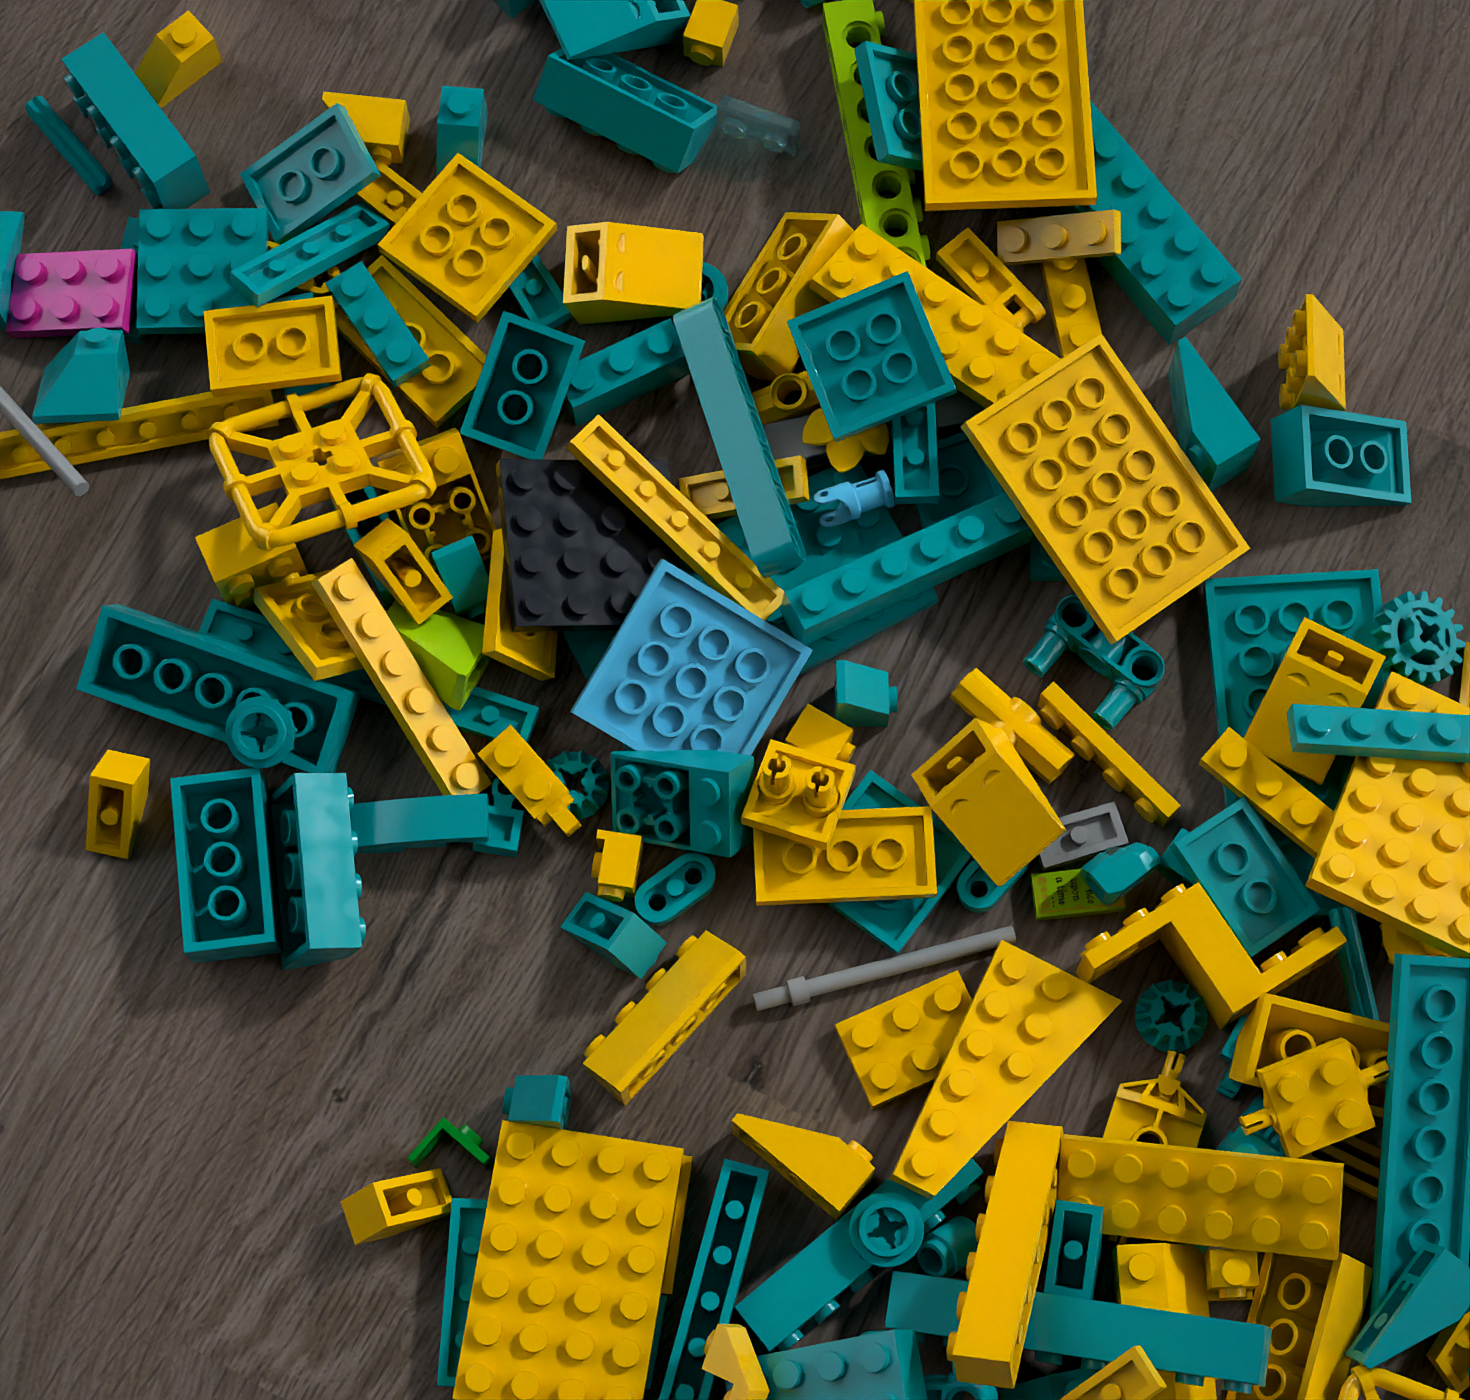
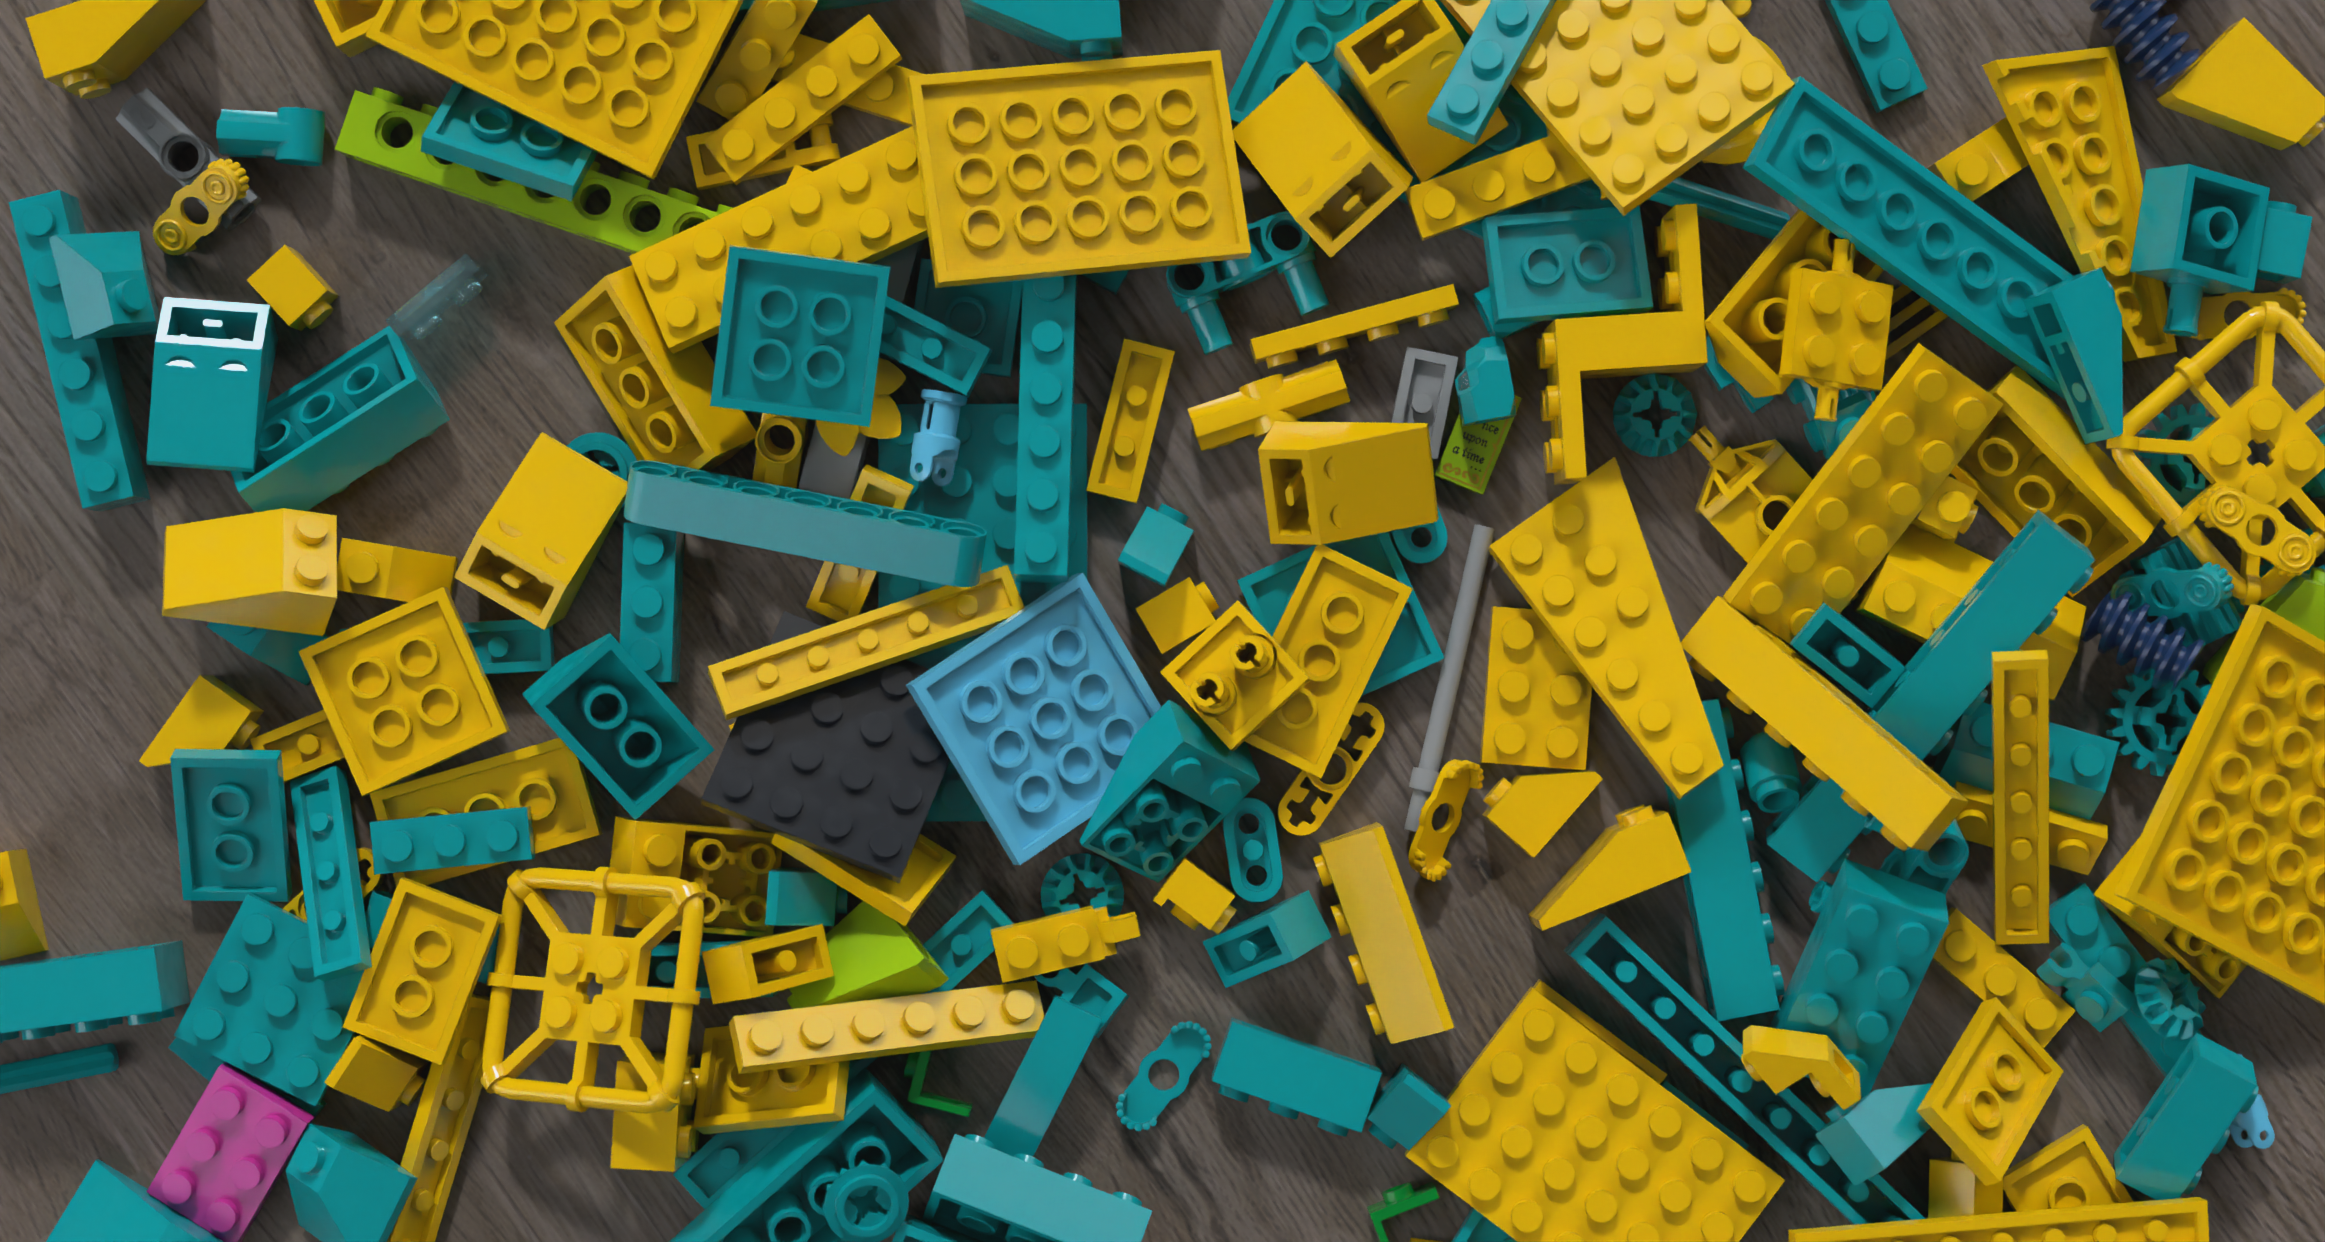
camera: 60 degrees left, 15 degrees up
(182, 355) = (378, 1074): none -> yellow slope
(379, 733) = (916, 1070): none -> green bracket
(441, 912) = (1142, 1101): none -> teal piece
(498, 94) = (253, 570): none -> yellow slope
(518, 1008) = (1295, 1077): none -> teal brick
(547, 187) = (392, 570): none -> yellow slope
(733, 921) = (1318, 808): none -> yellow beam
(748, 1017) = (1430, 844): none -> yellow piece
(826, 1083) = (1537, 805): none -> yellow slope
(895, 1209) = (1741, 850): teal gear -> none
(943, 634) = (1130, 421): none -> yellow plate
(1040, 287) = (802, 99): none -> yellow plate
(1213, 661) = (1320, 159): none -> yellow slope

